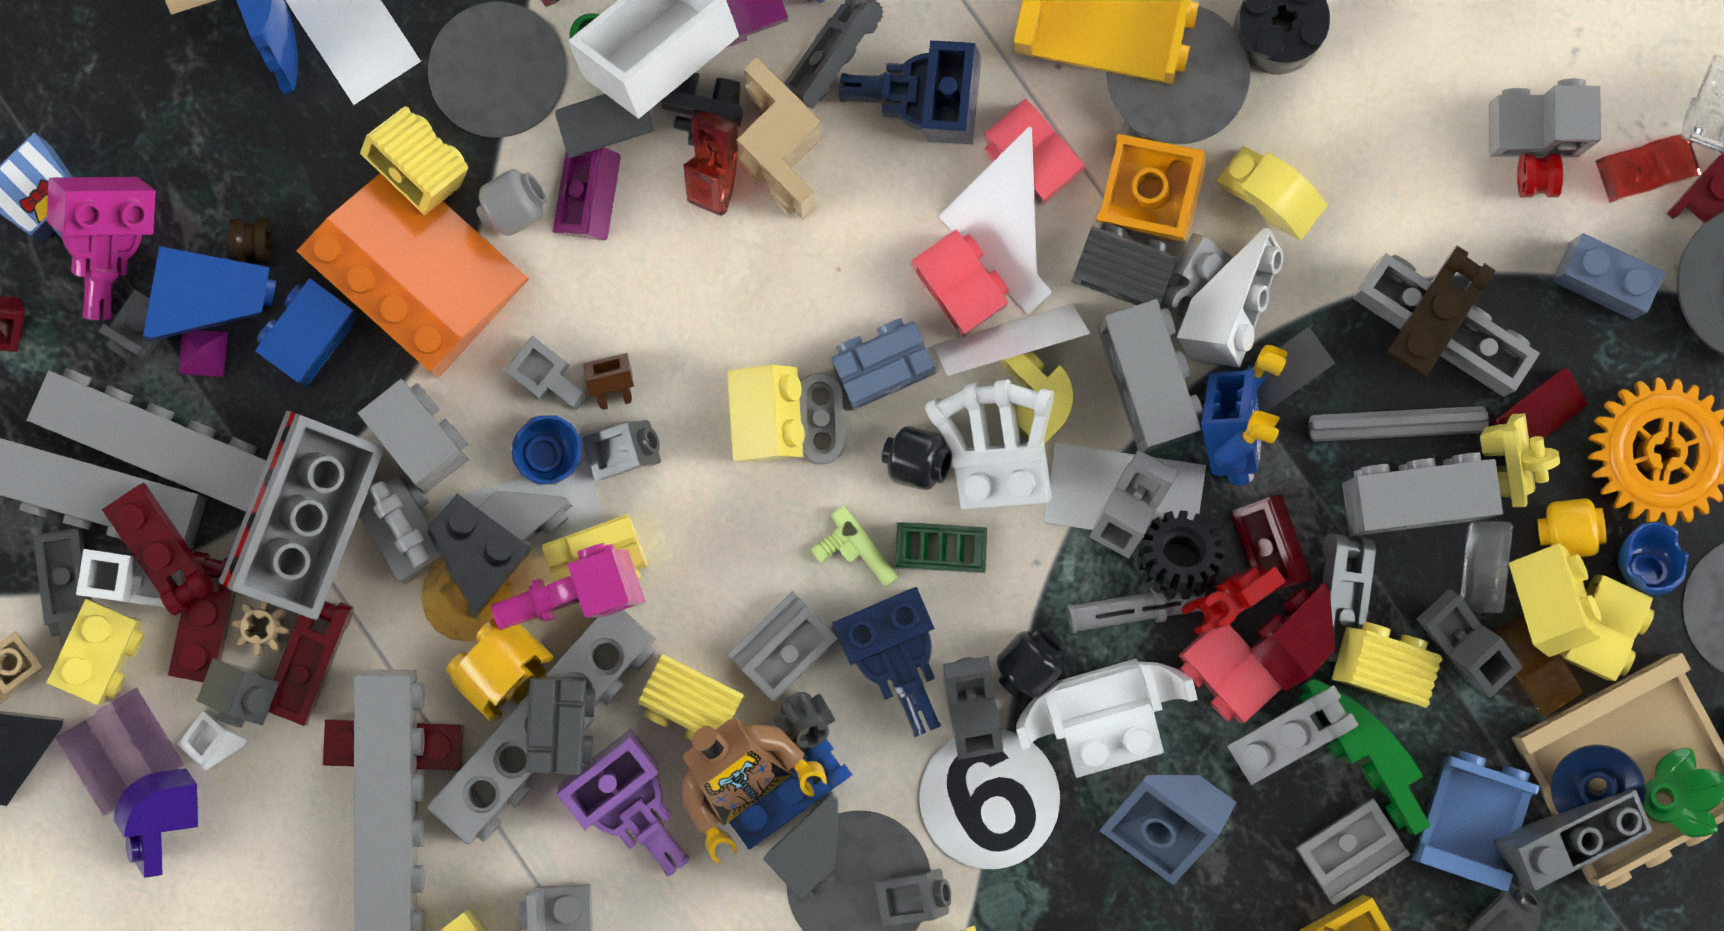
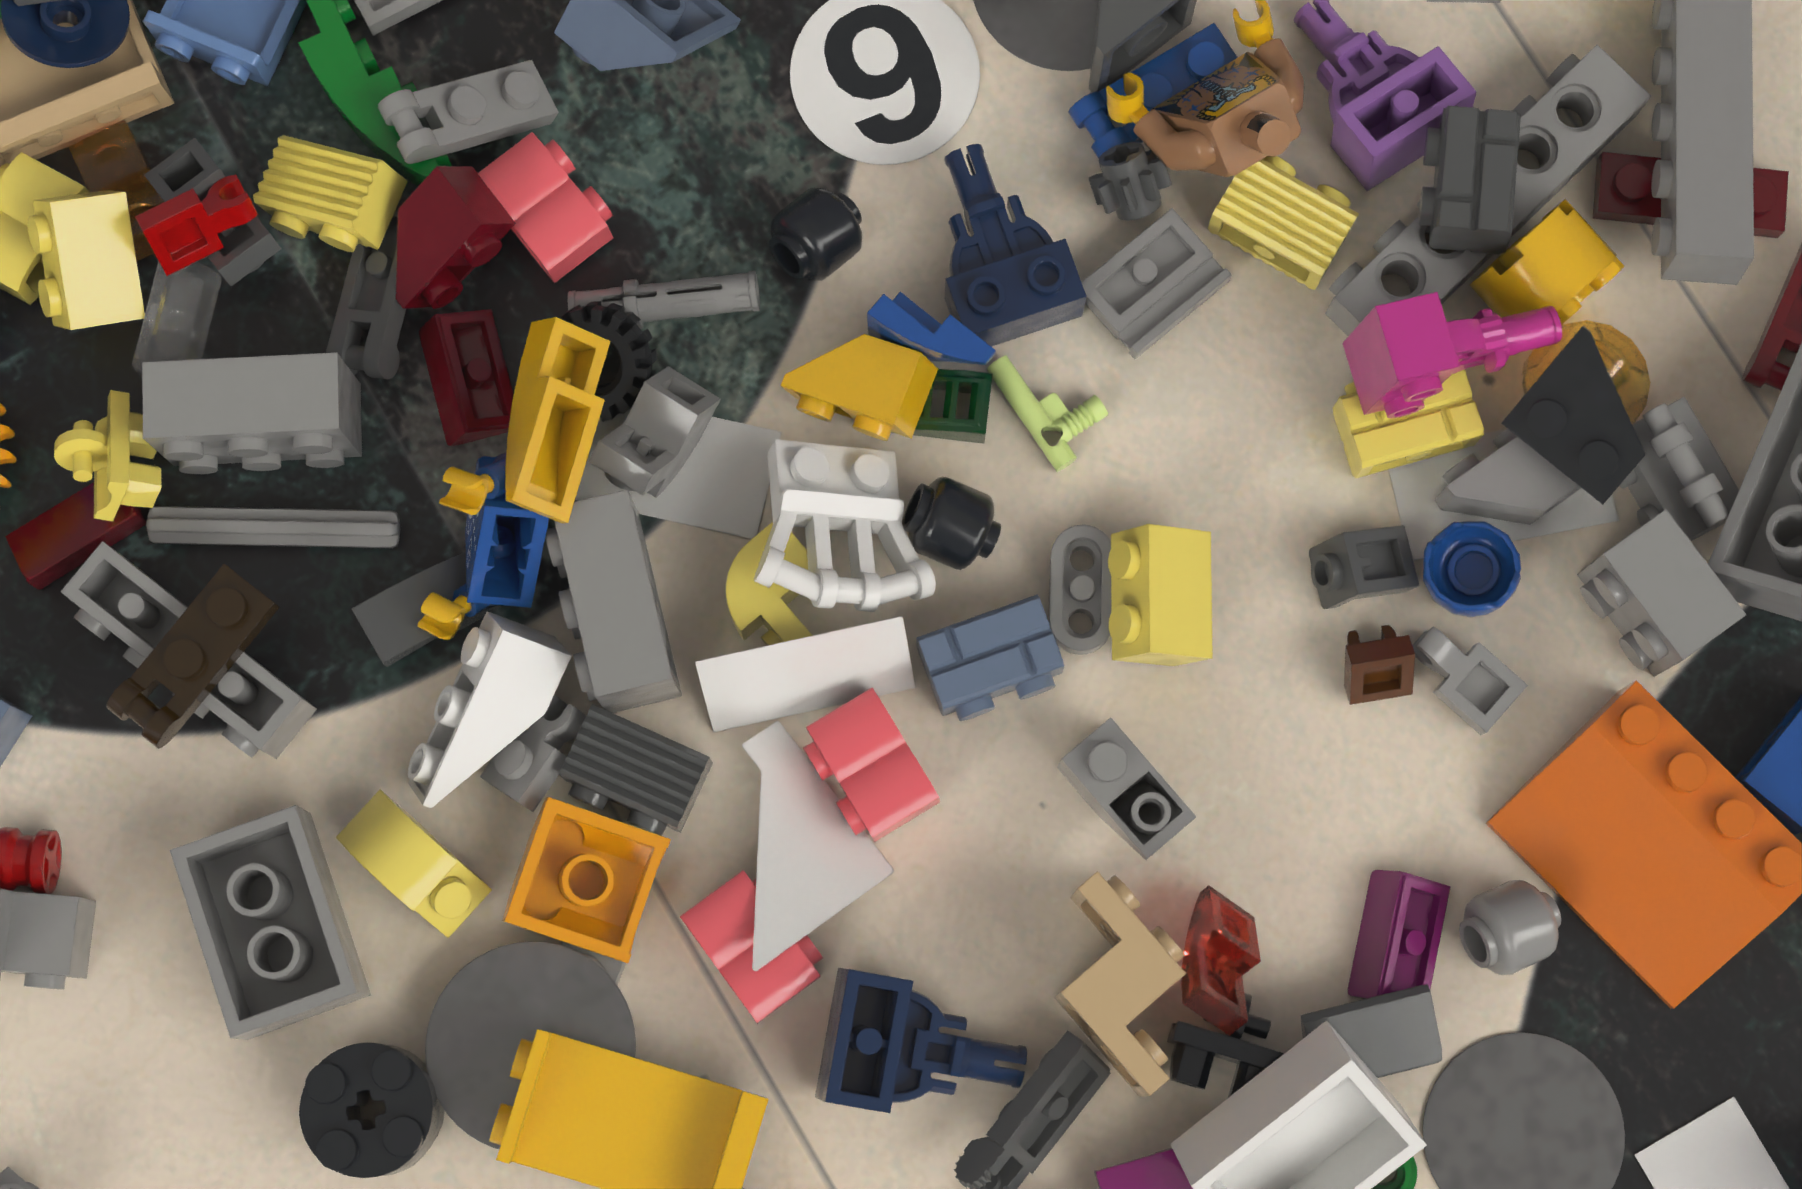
camera: 175 degrees left, 5 degrees down
(415, 159) = (1649, 999): light yellow brick -> none
(782, 275) = (1125, 789): none -> light grey slope
(945, 584) = (913, 328): none -> blue slope
(972, 707) = (899, 178): dark grey brick -> none
(982, 551) = (868, 382): none -> yellow slope
(1106, 713) = (719, 164): white plate -> none
(1206, 492) = (553, 417): none -> yellow slope
(1234, 596) = (526, 289): red plate -> none
(1365, 141) = (270, 923): none -> light grey brick
(1483, 623) = (189, 228): none -> red plate
(1574, 525) = (49, 363): yellow head -> none

